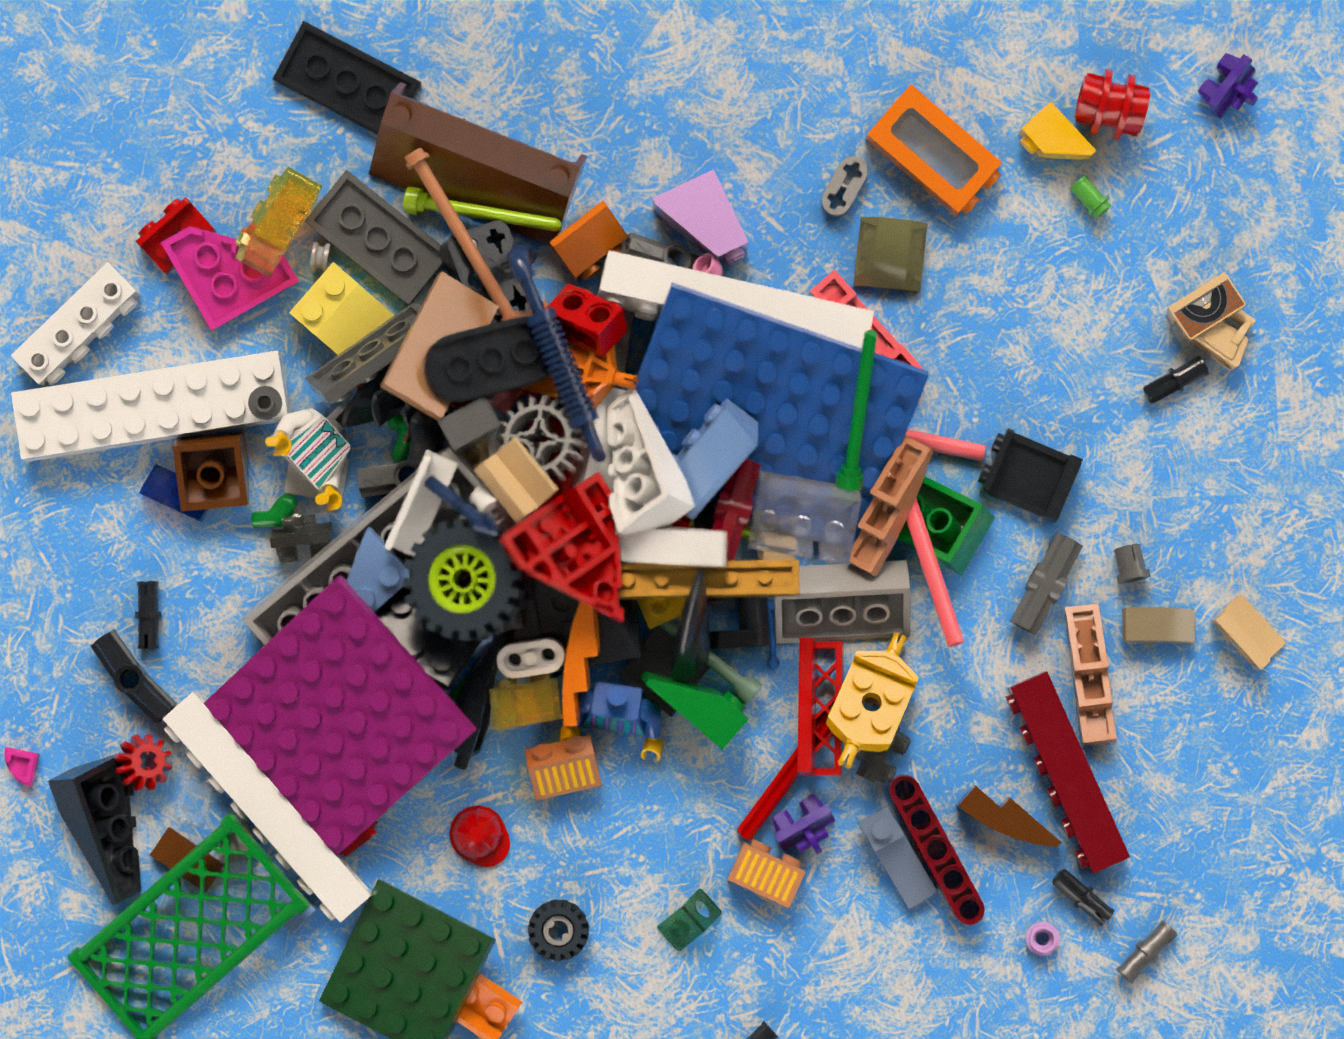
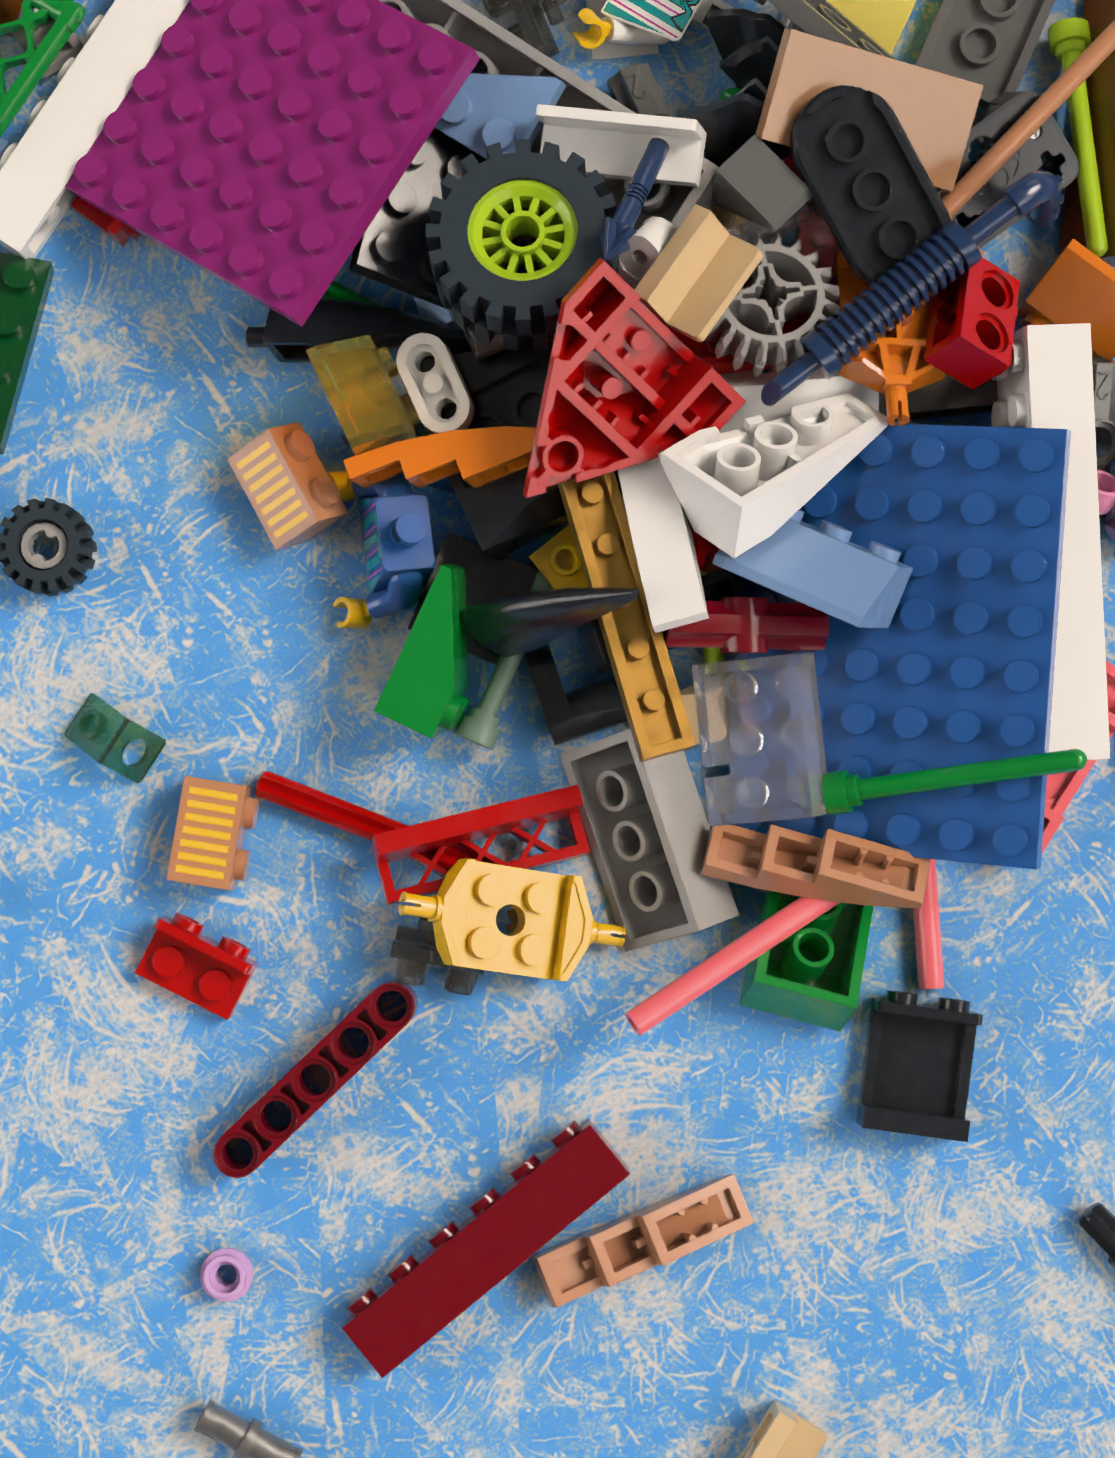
camera: 75 degrees right, 0 degrees up
(480, 836) = (156, 396): red piece -> none
(773, 662) = (530, 757): blue hinge -> none
(806, 831) = (293, 873): dark purple hips -> none
(846, 905) = (196, 965): none -> red bracket
(897, 857) = (289, 1022): sand blue slope -> none
(1007, 818) = (390, 1171): reddish brown slope -> none
(1046, 583) = (762, 1136): dark grey piece -> none
(1083, 897) = (305, 1320): black axle -> none
(1130, 564) = (827, 1256): dark grey bush -> none
(1157, 625) = (746, 1324): dark tan slope -> none

